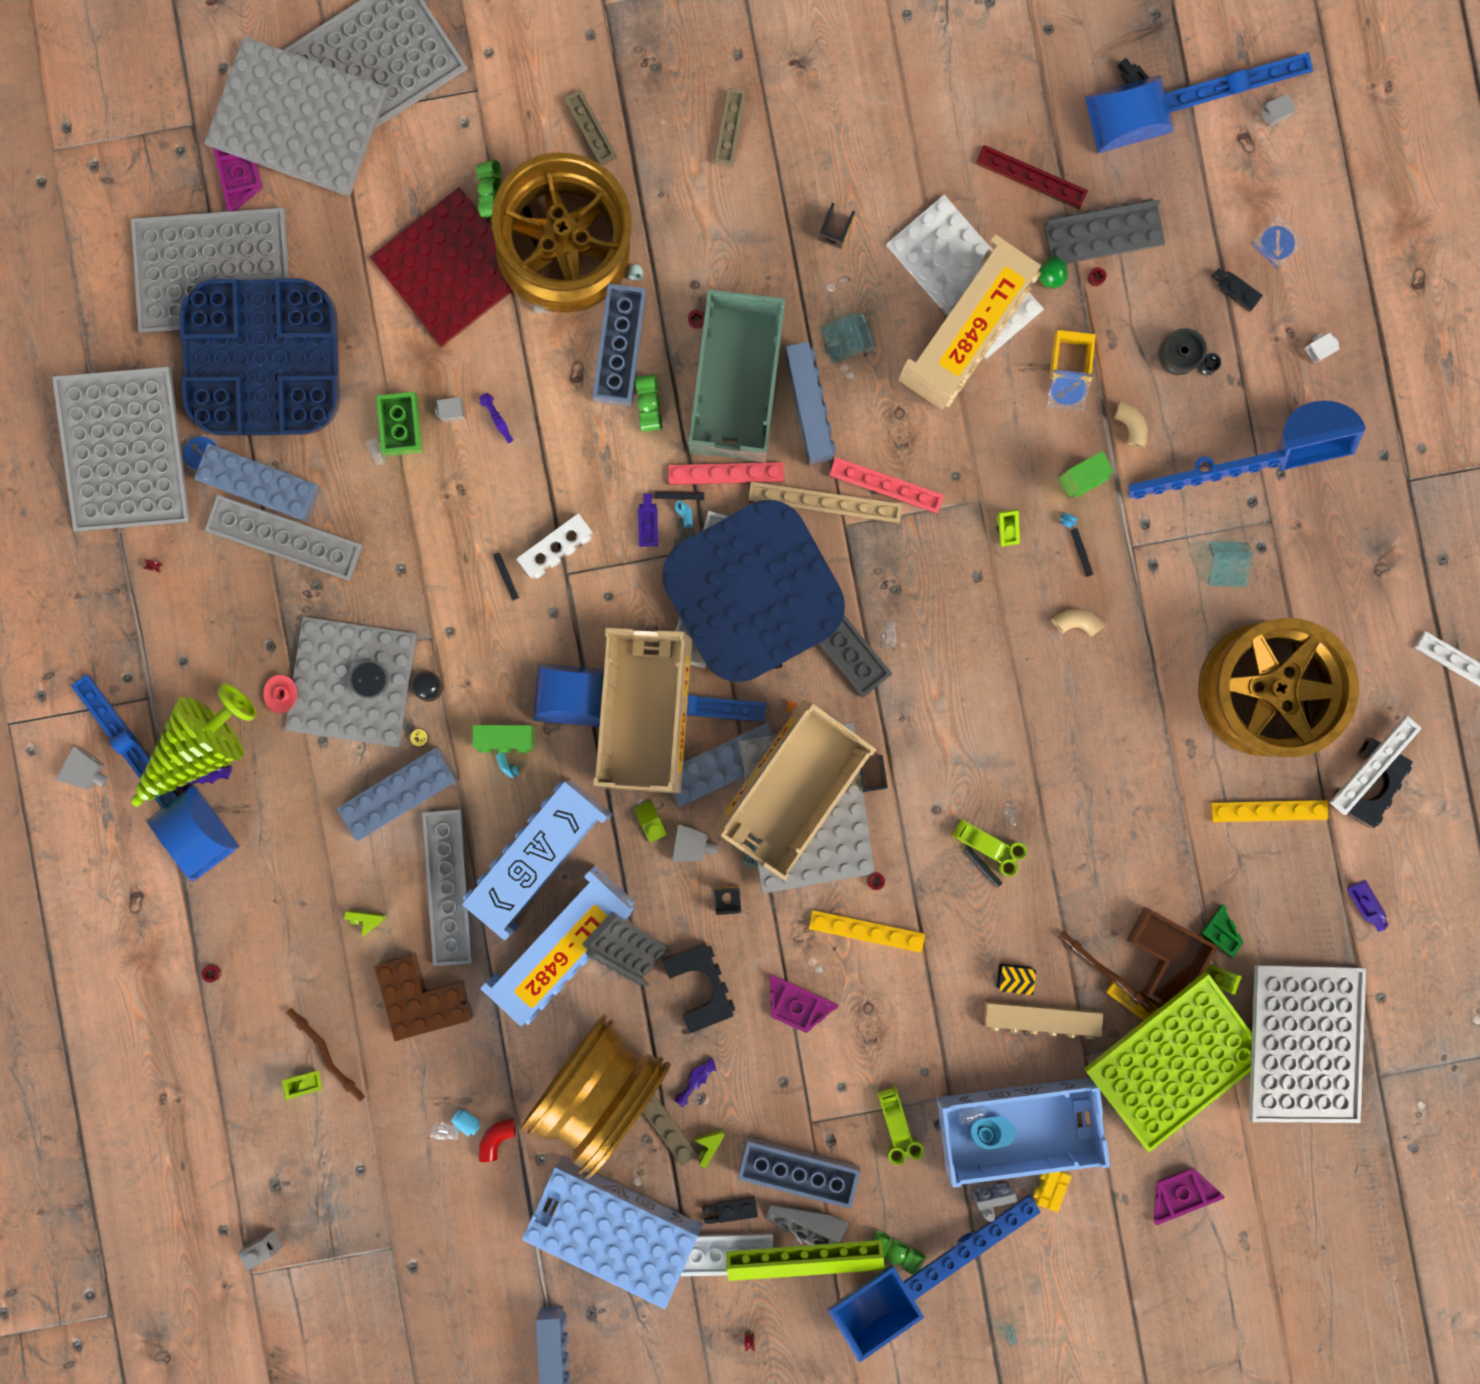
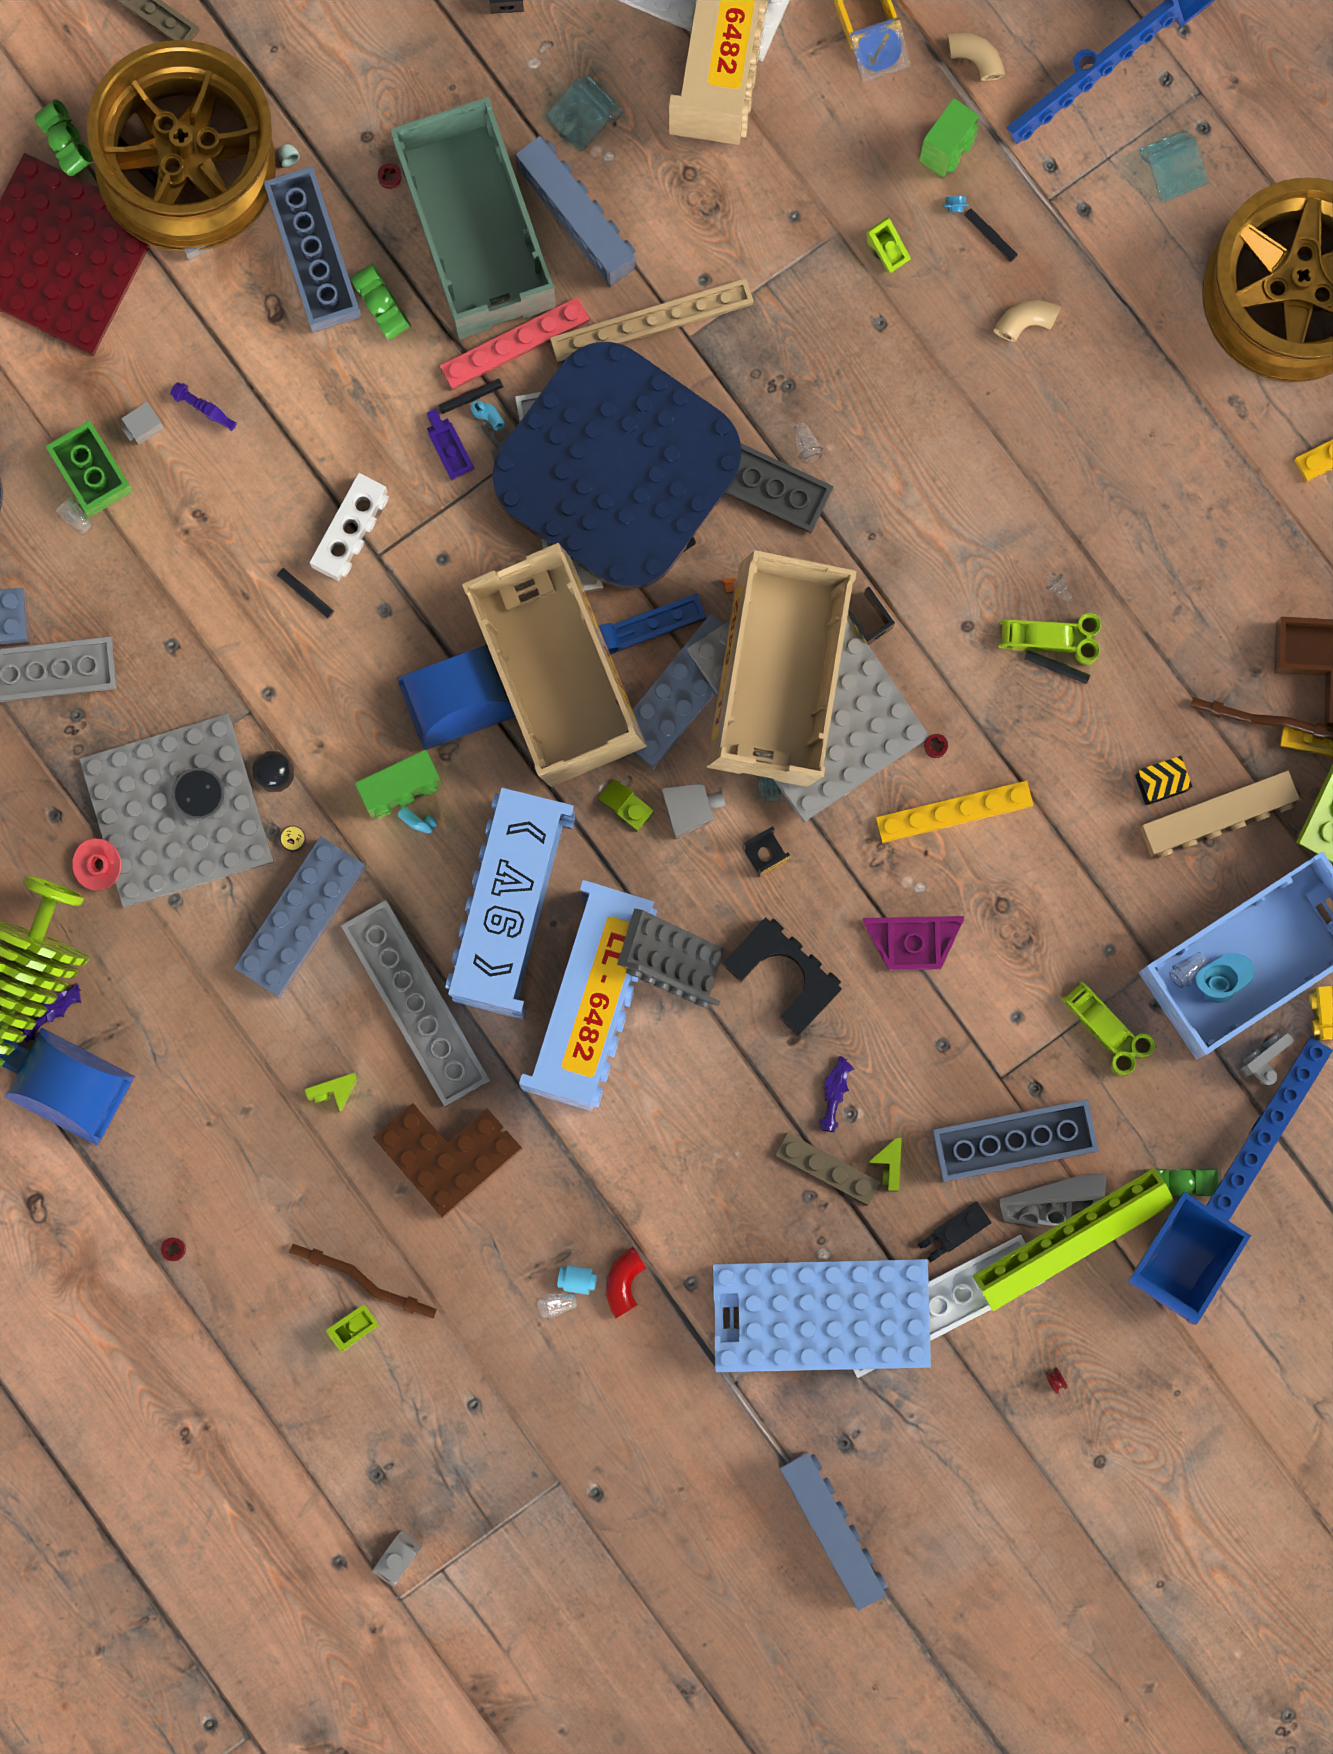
camera: 25 degrees left, 5 degrees down
(596, 1097) = (721, 1151): pearl gold wheel -> none
(886, 485) = (716, 265): coral plate -> none

